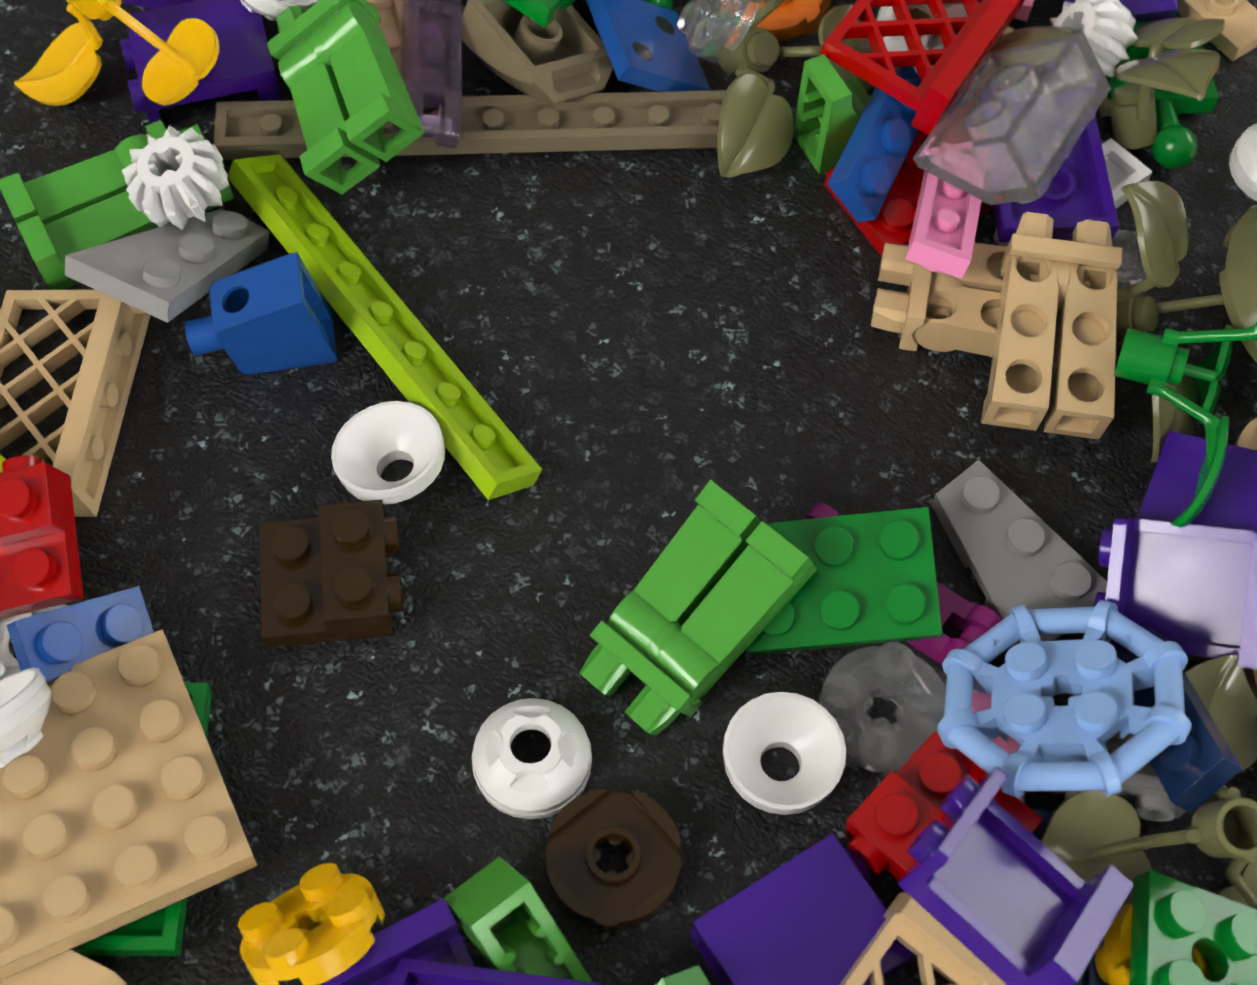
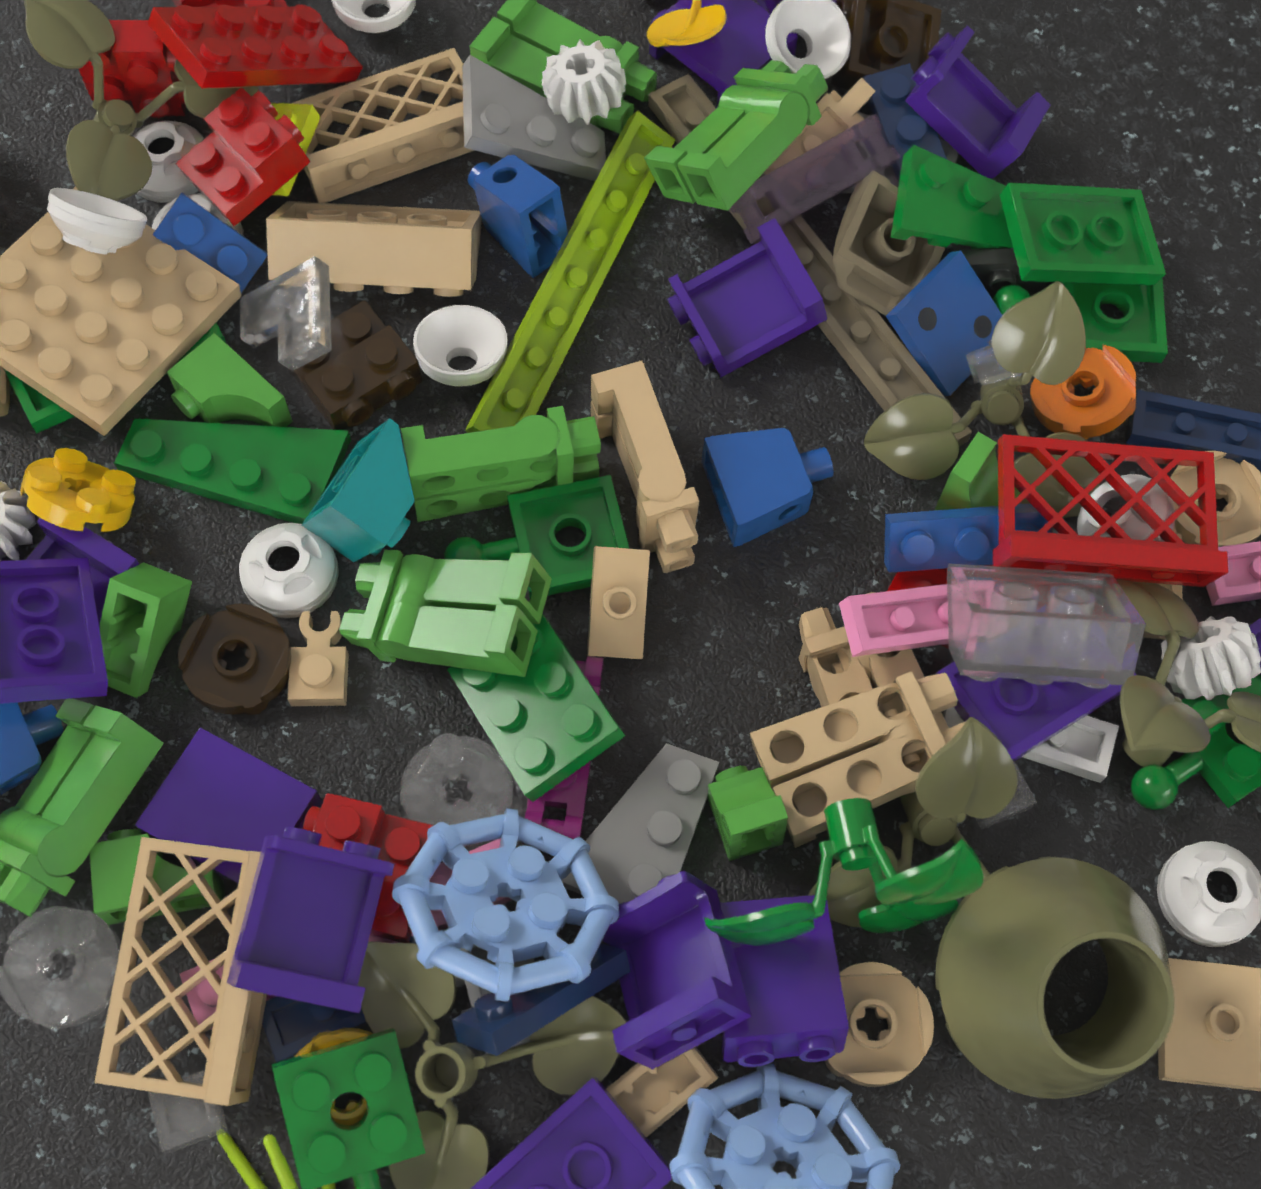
camera: 60 degrees right, 5 degrees up
(203, 479) = (378, 245): none -> tan slope
(236, 578) = (294, 310): none -> clear plate
(270, 708) = (225, 387): none -> bright green arch
(374, 744) = (241, 465): none -> green wing
(513, 181) = (748, 302): none -> dark purple panel
(519, 616) = (366, 497): none -> teal slope
(534, 544) = (486, 466): none -> bright green hips
(634, 492) = (537, 520): none -> green plate
(645, 350) = (664, 509): none -> tan hips
(670, 776) = (318, 671): none -> tan plate
(708, 277) = (761, 480): none -> blue torso
(769, 457) = (618, 602): none -> tan plate
(788, 723) = (364, 706): white piece -> none
(1055, 454) = (746, 811): none -> bright green arch

